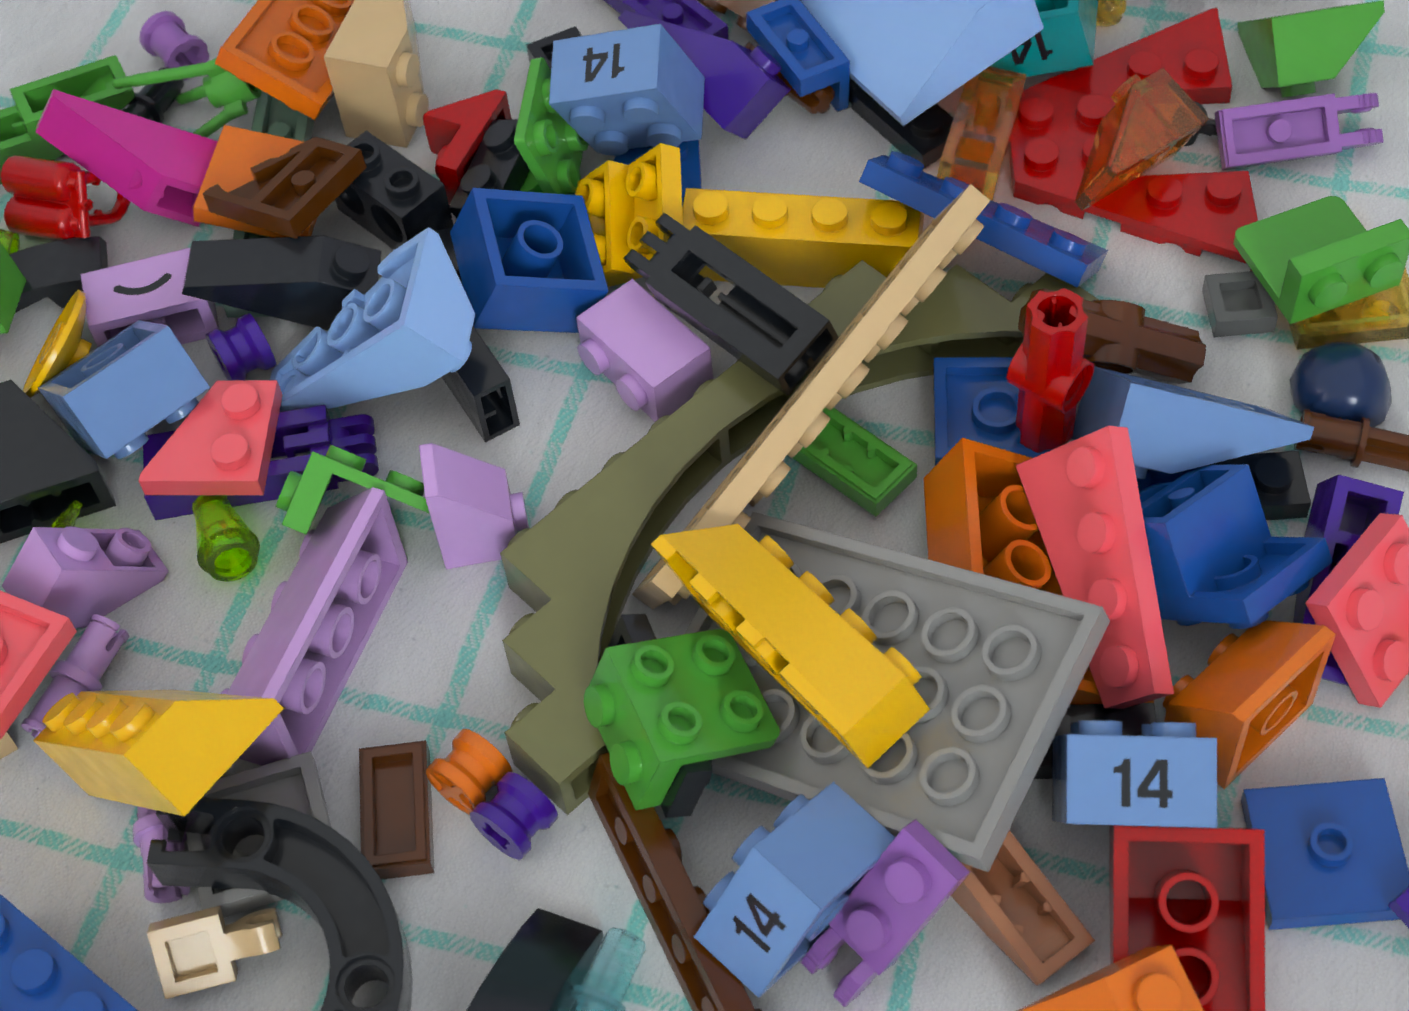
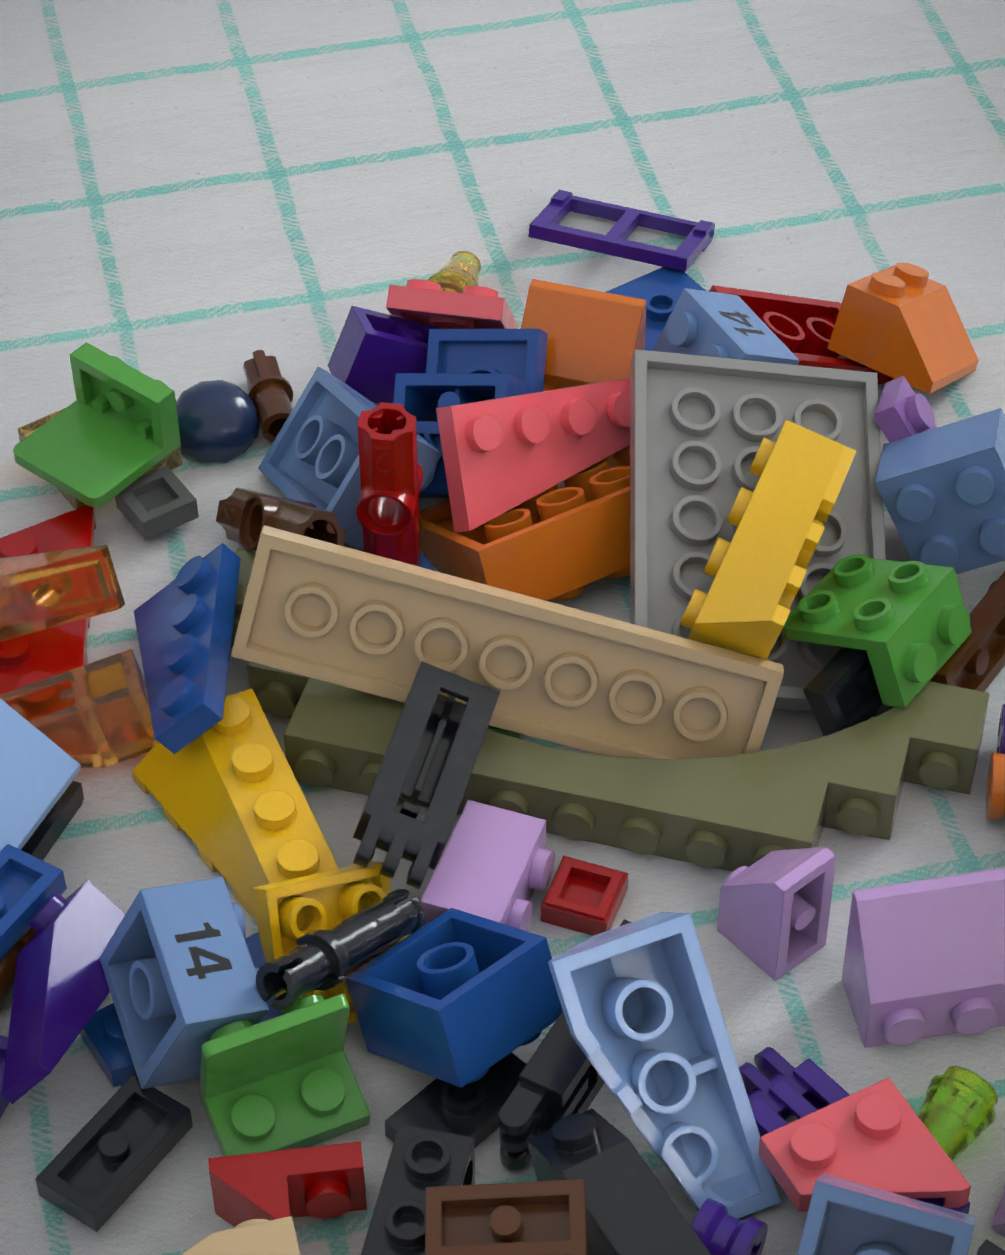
camera: 125 degrees left, 10 degrees down
(305, 492) = (849, 989): bright green bracket -> none
(494, 165) = (326, 1113): black plate -> none
(573, 151) = (330, 953): none -> black pin
(600, 425) = (584, 896): none -> red tile

